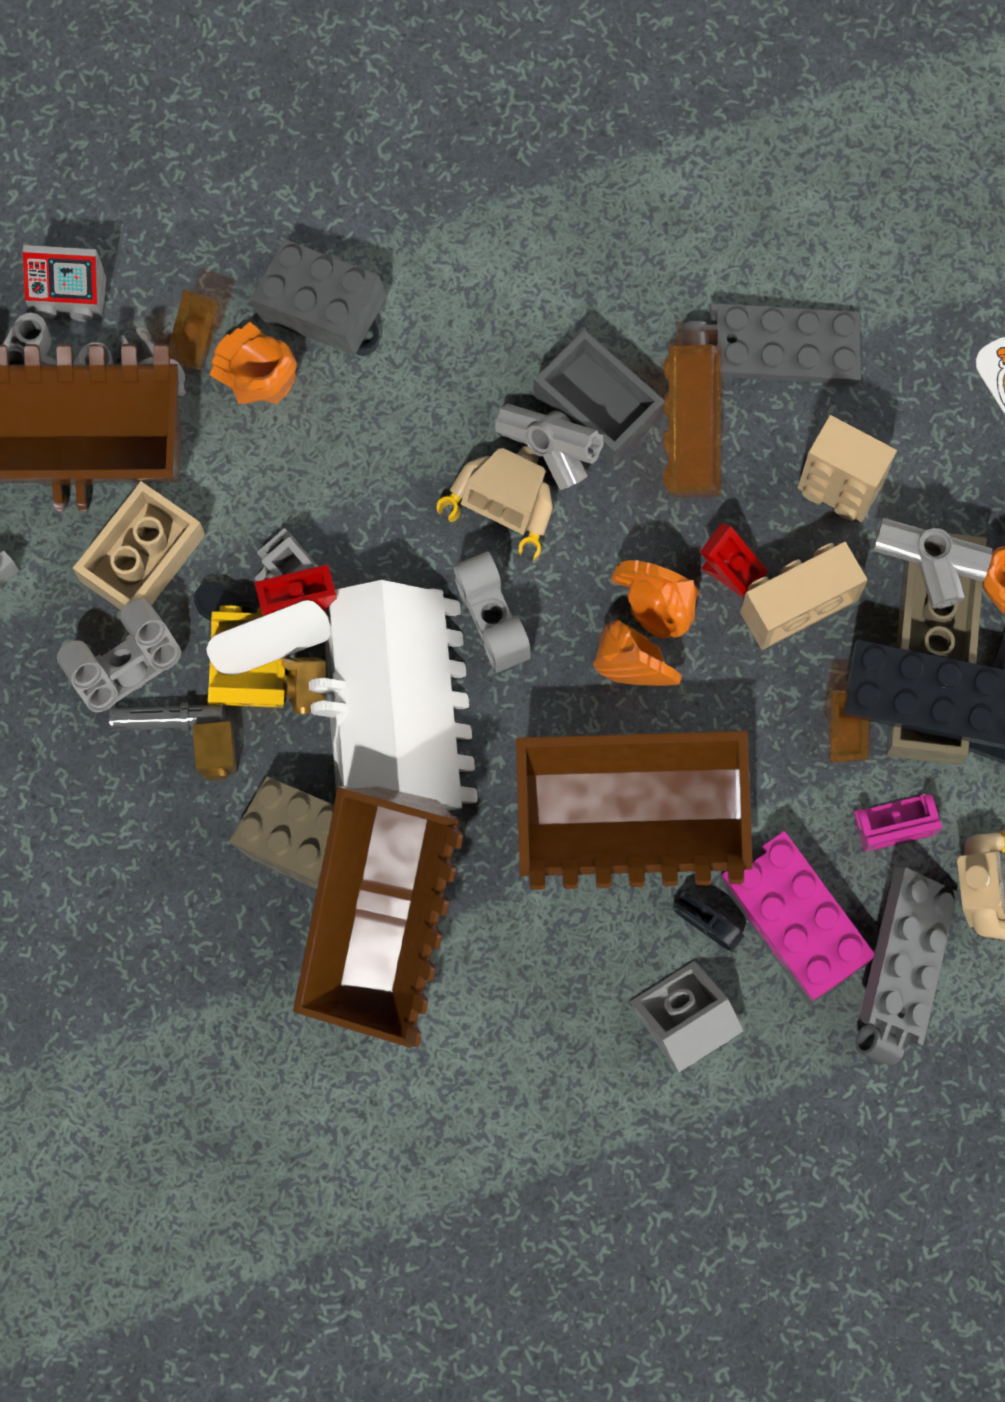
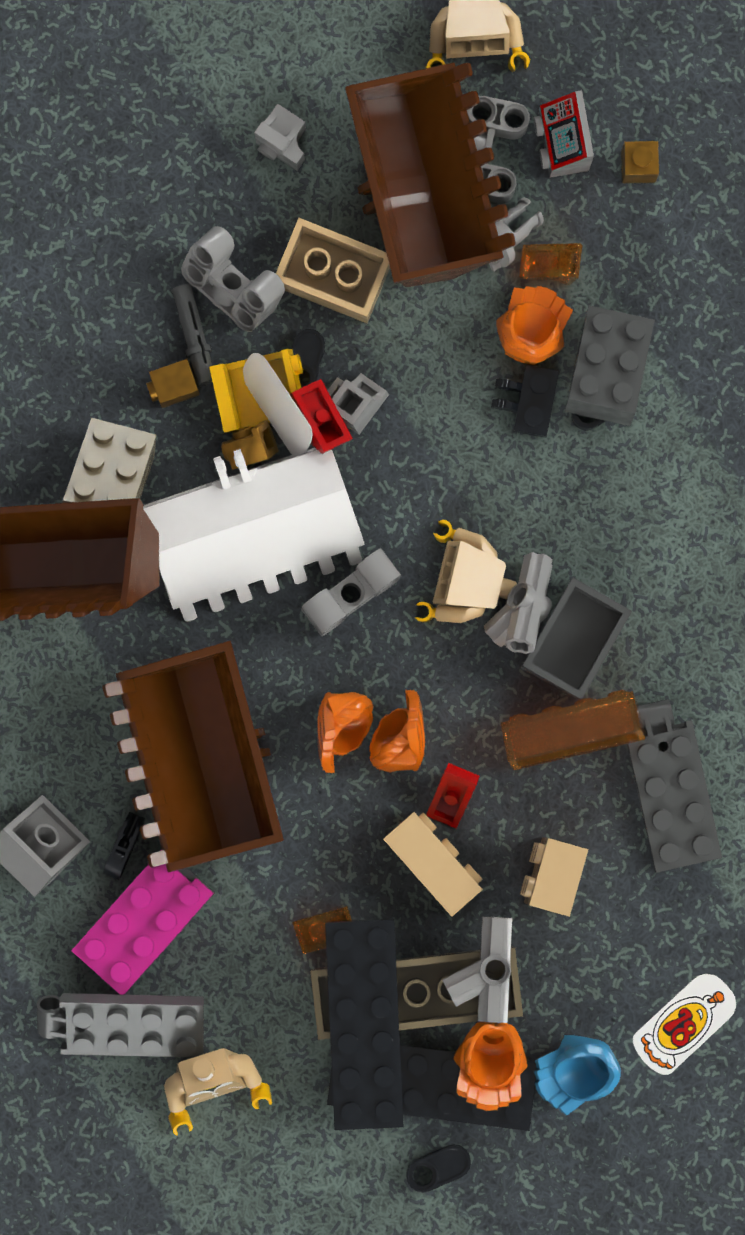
camera: 75 degrees right, 10 degrees up
(113, 220) = (640, 162): none -> pearl gold brick
(333, 385) = (535, 400): none -> black hinge
(897, 822) = (252, 991): dark pink hinge -> none

